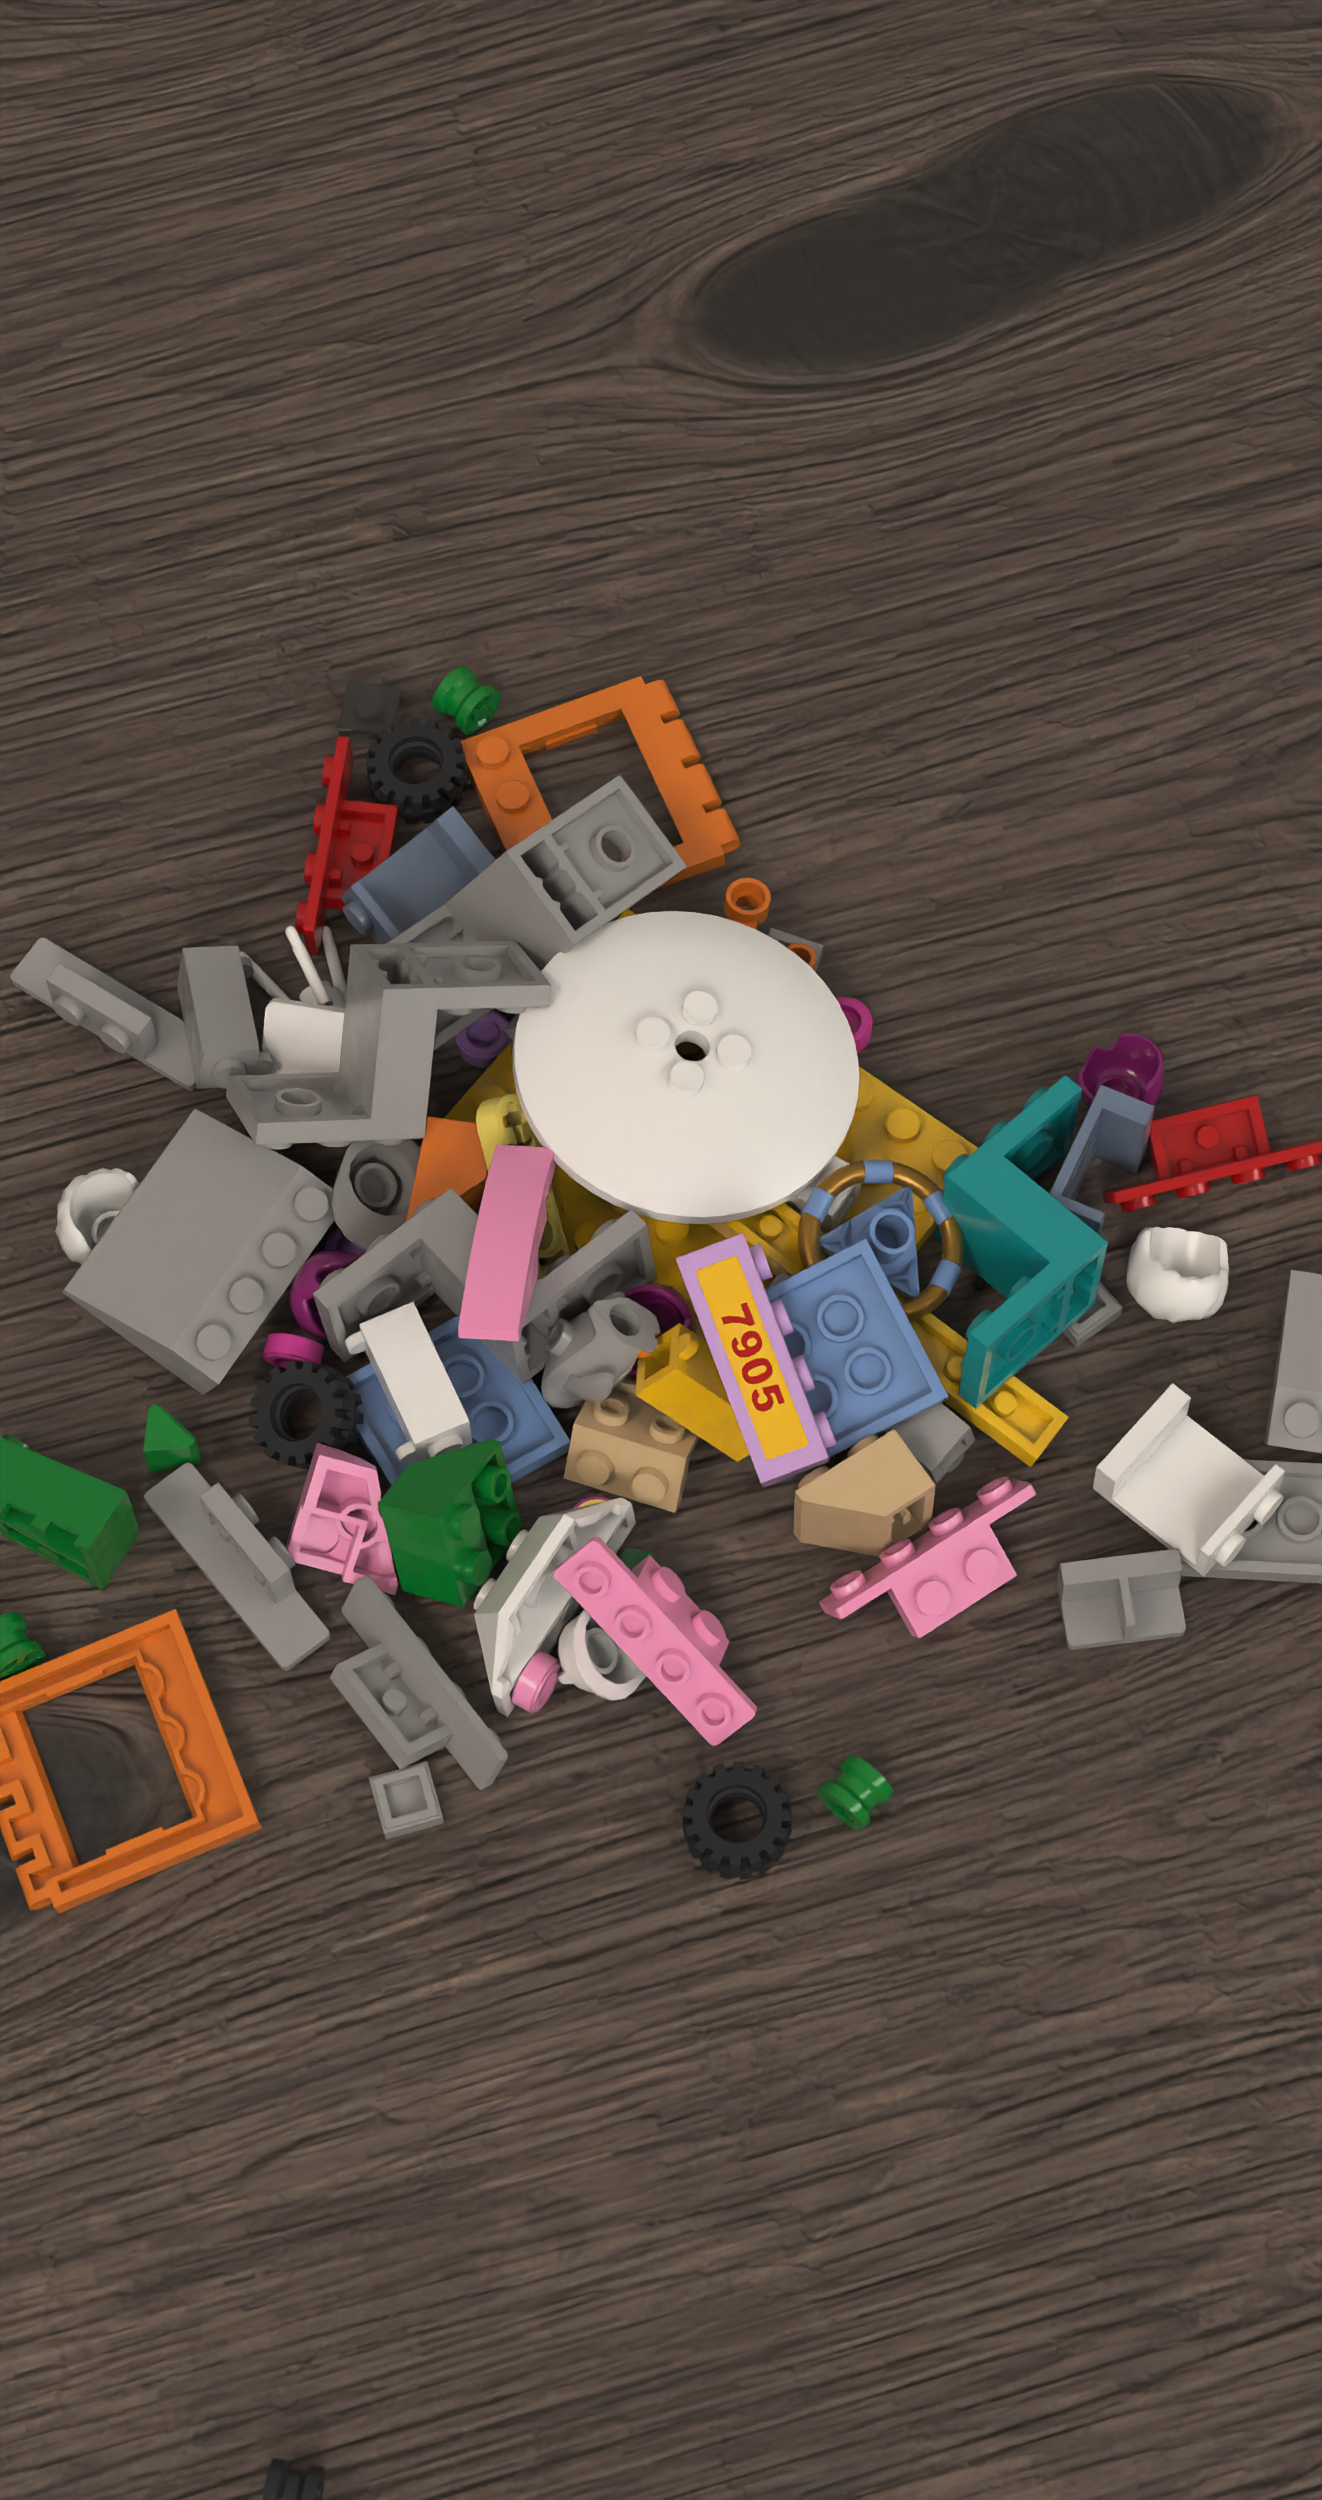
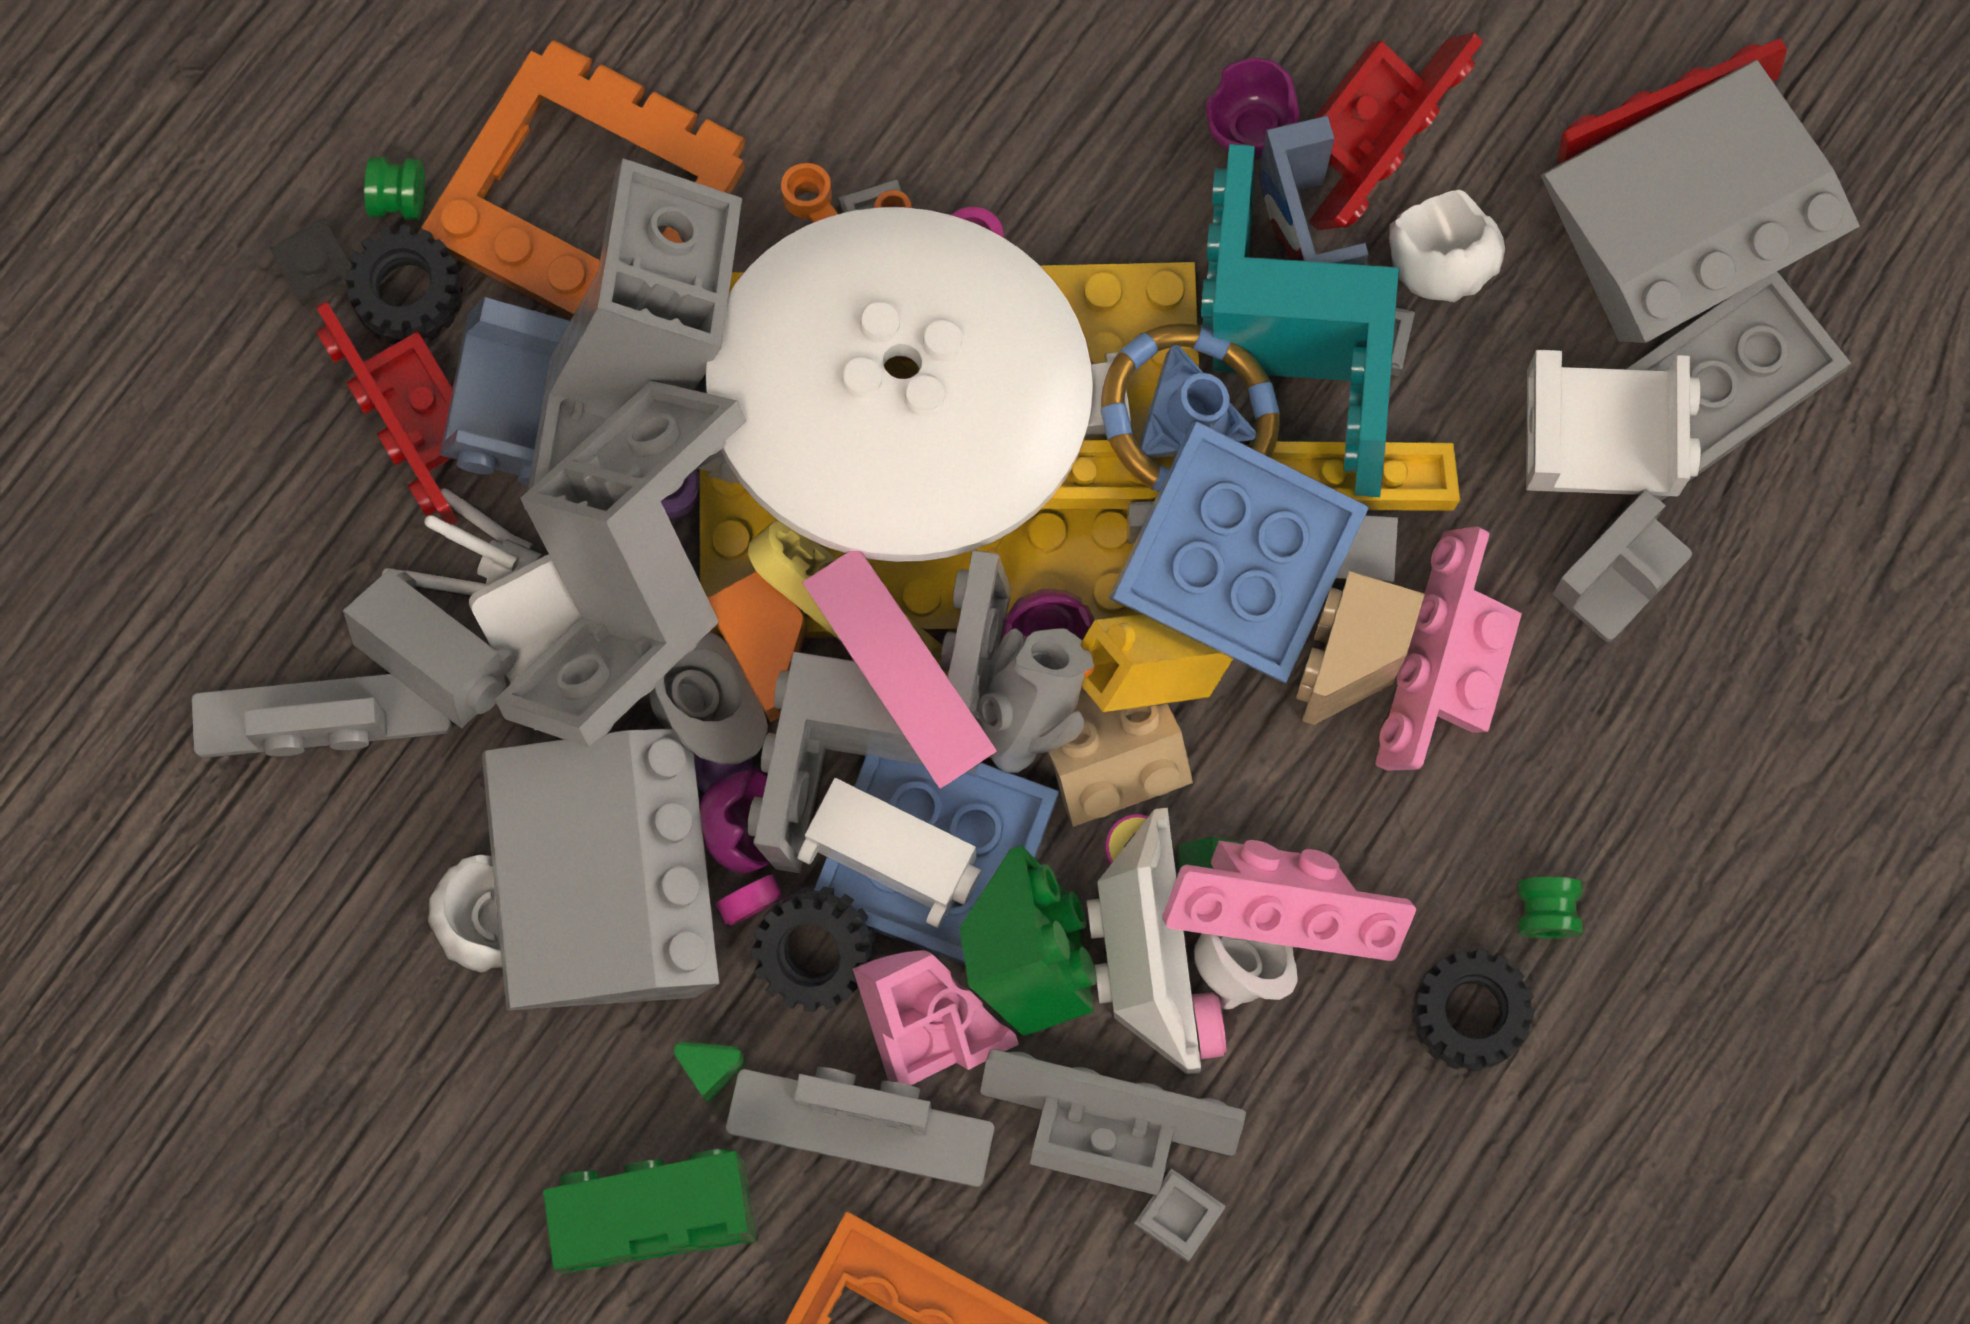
camera: 40 degrees left, 10 degrees up
(754, 1361) = (1190, 603): brick -> none

